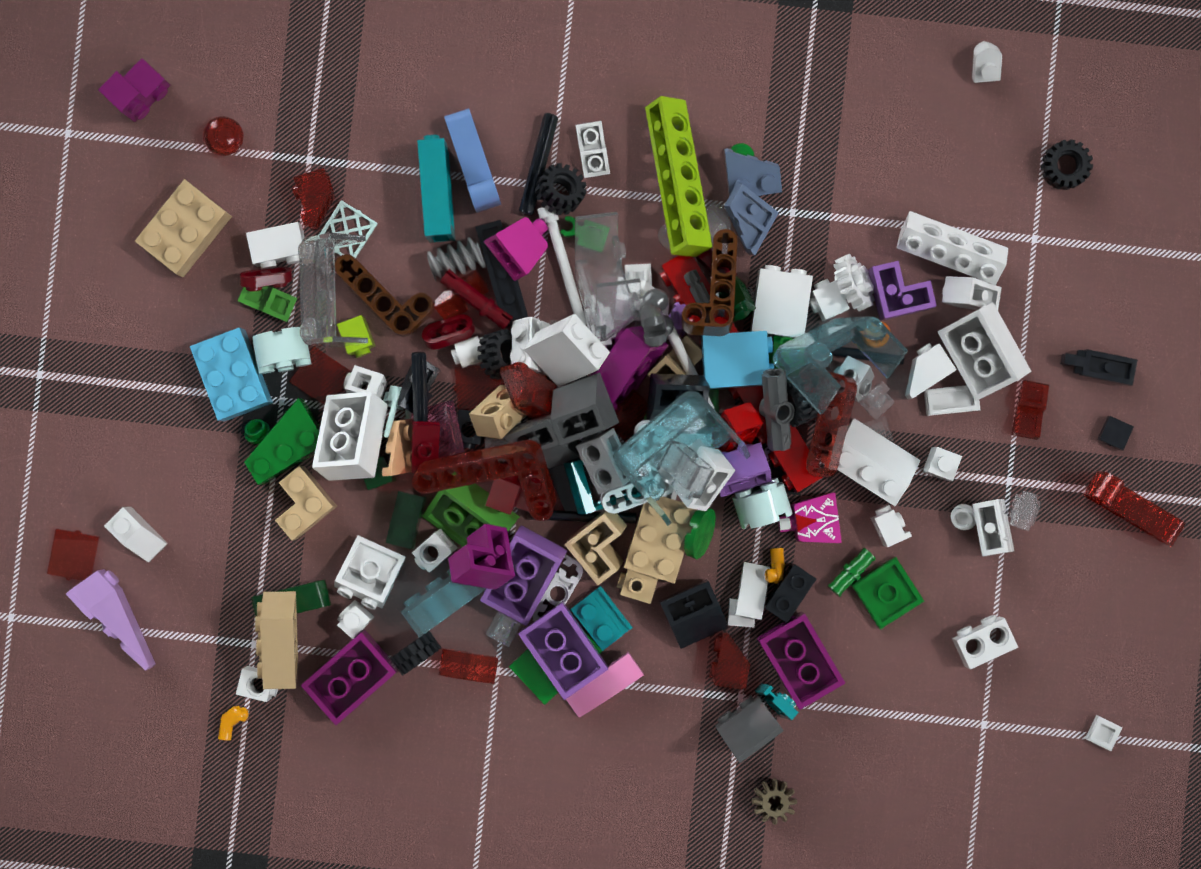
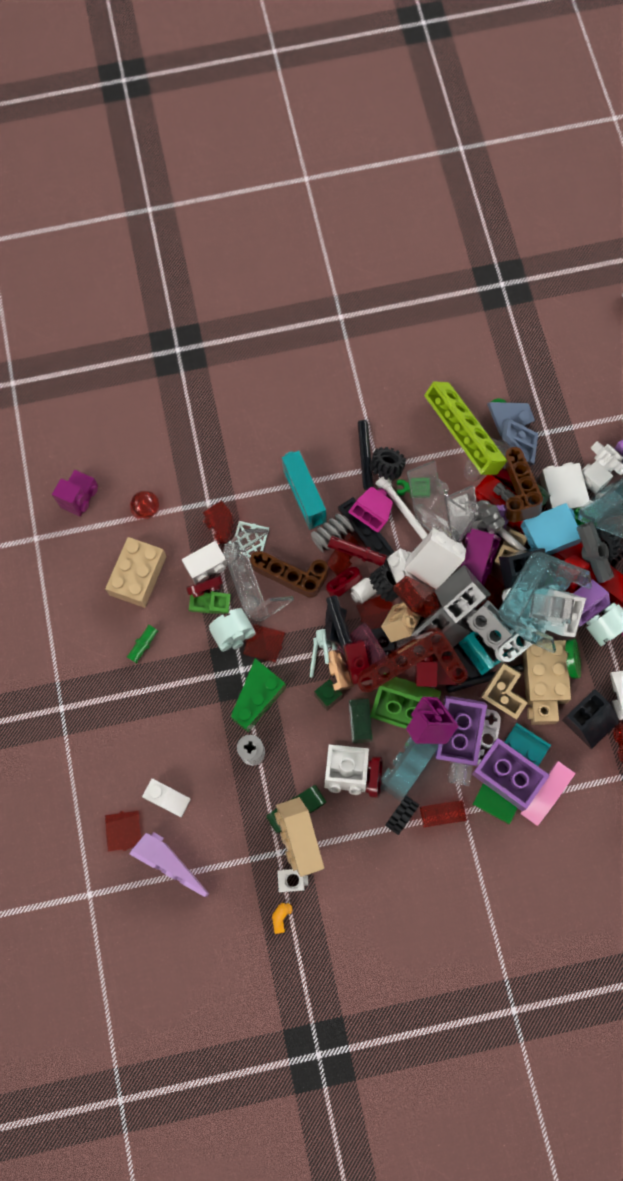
camera: 15 degrees left, 15 degrees down
(164, 326) = (142, 644): none -> green pin
(231, 374) = (201, 660): medium azure brick -> none
(247, 516) = (245, 744): none -> light grey piece
(256, 431) = (231, 694): green plate -> none
(310, 503) = (287, 733): tan brick -> none
(350, 436) = (301, 671): white brick -> none
(350, 677) = (360, 850): magenta brick -> none
(354, 619) = (347, 806): white brick -> none
(357, 328) = (287, 611): lime brick -> none
(360, 377) = (298, 636): white brick -> none
(405, 584) = (375, 769): none -> dark red plate
(443, 545) = (394, 730): white brick -> none
(472, 160) = (332, 479): medium blue beam -> none
(592, 149) = (398, 434): white slope -> none

